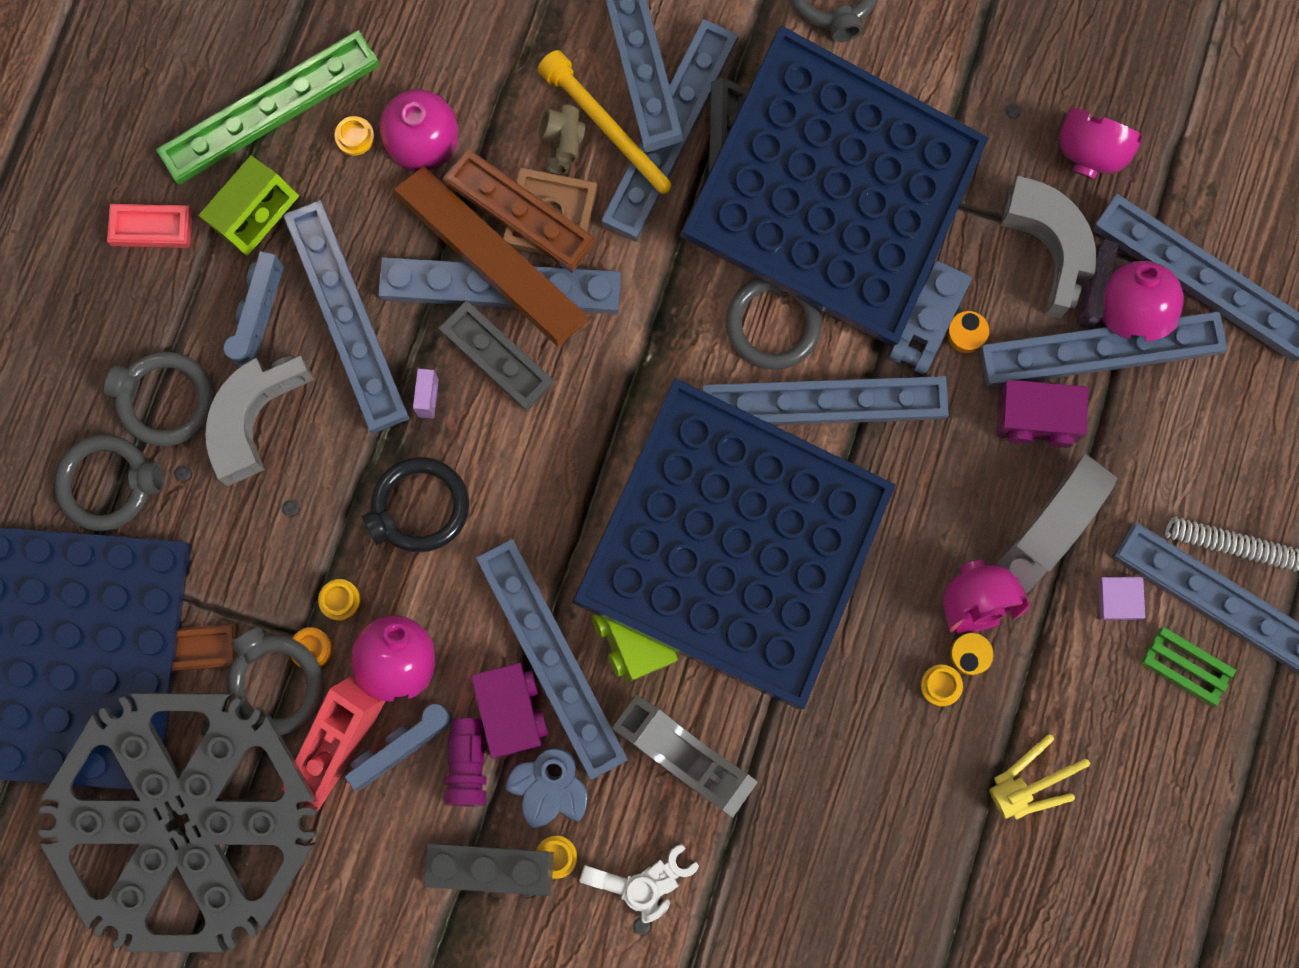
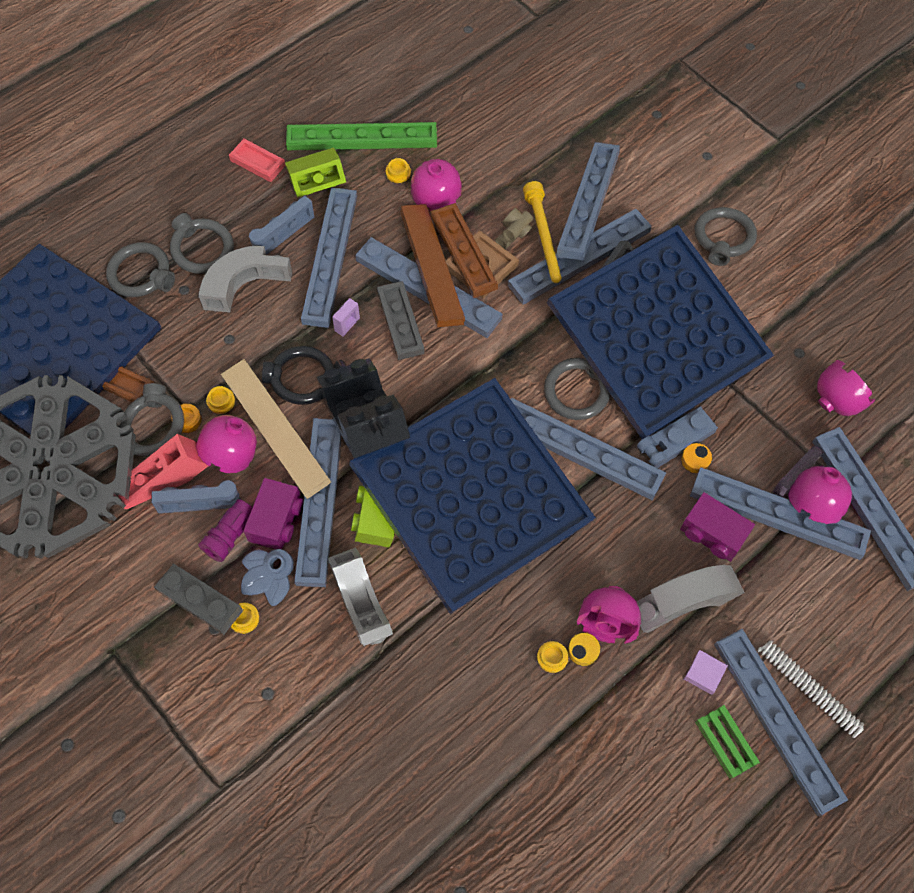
camera: 30 degrees right, 15 degrees down
(436, 598) = (276, 429): none -> tan tile
(510, 498) = (361, 407): none -> black brick
(643, 889) = (283, 669): white piece -> none
(1012, 796) = (558, 753): light yellow plant -> none
(1063, 230) = (791, 426): light grey arch -> none

